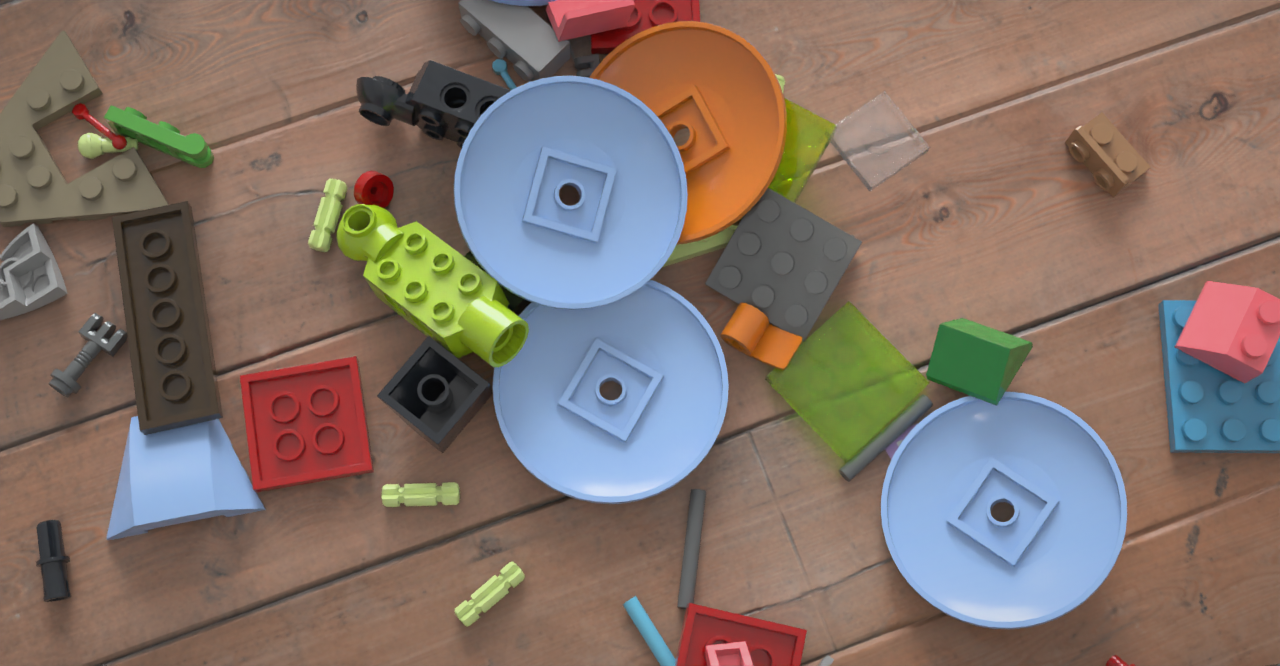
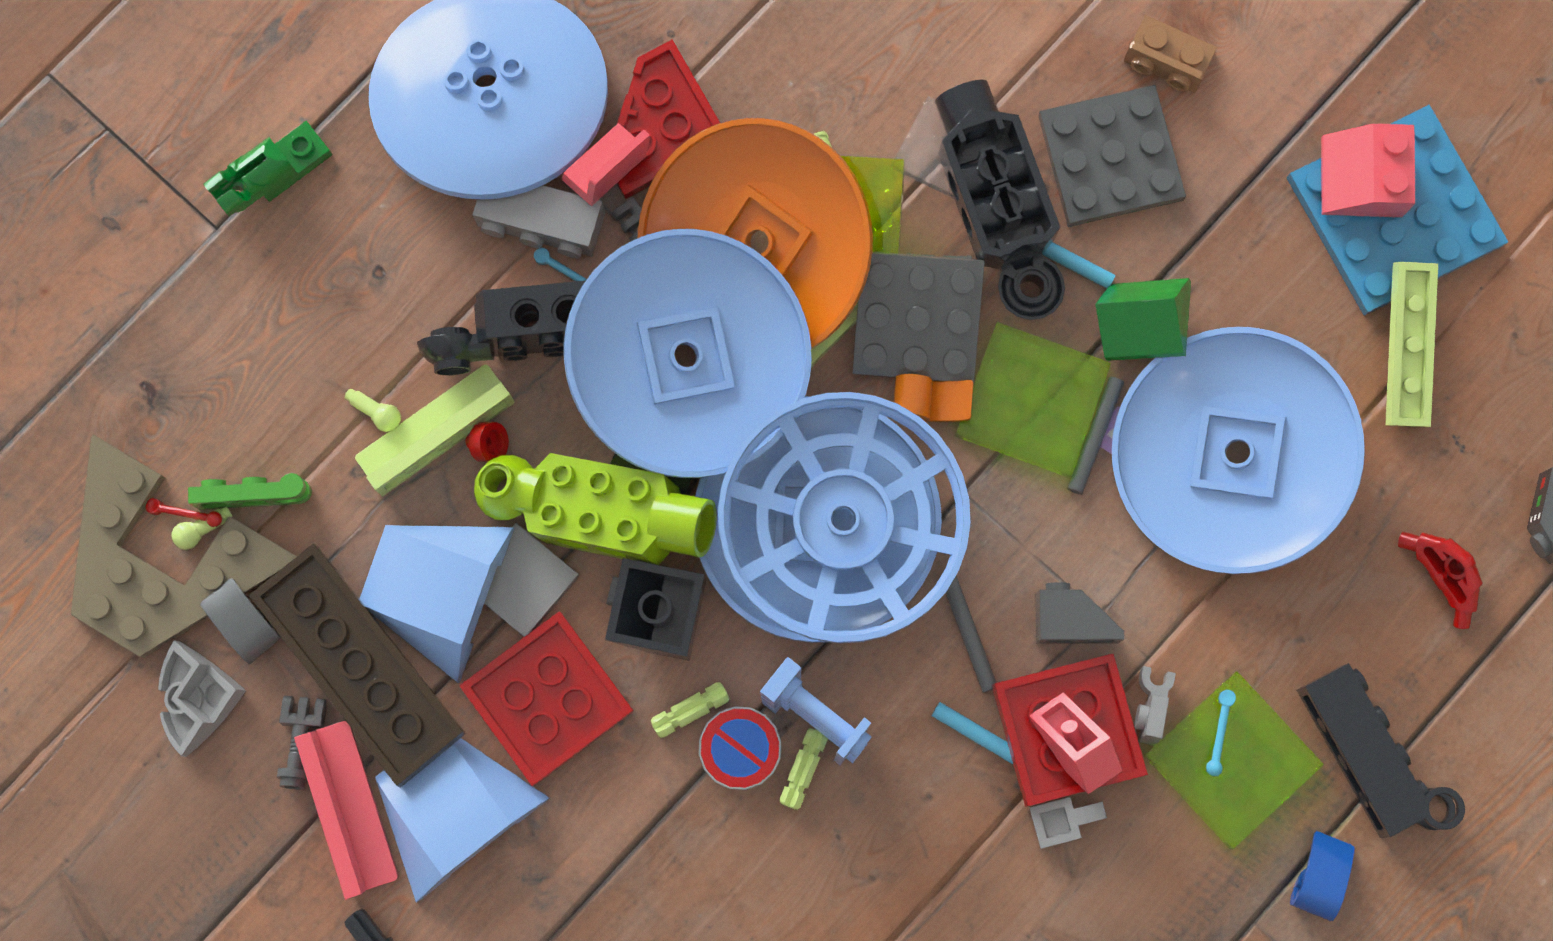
camera: 20 degrees left, 5 degrees up
(90, 430) = (346, 808): none -> coral panel
(92, 235) = (240, 621): none -> dark grey panel
(264, 284) = (434, 585): none -> light blue wedge
(302, 130) = (384, 416): none -> yellowish green piece
(327, 215) = (455, 487): yellowish green axle -> none
(339, 159) = (433, 430): none -> yellowish green panel
(339, 316) = (528, 582): none -> light grey tile
(444, 547) = (740, 748): none -> piece
(503, 514) = (786, 691): none -> light blue fence
(631, 369) = (851, 491): none -> light blue dish
(787, 582) = (1072, 618): none -> dark grey slope
(903, 197) = (1000, 196): none -> black brick
(930, 272) = (1079, 265): none -> medium azure piece
(1016, 213) = (1111, 156): none -> dark grey plate
(1201, 495) = (1411, 344): none -> yellowish green plate

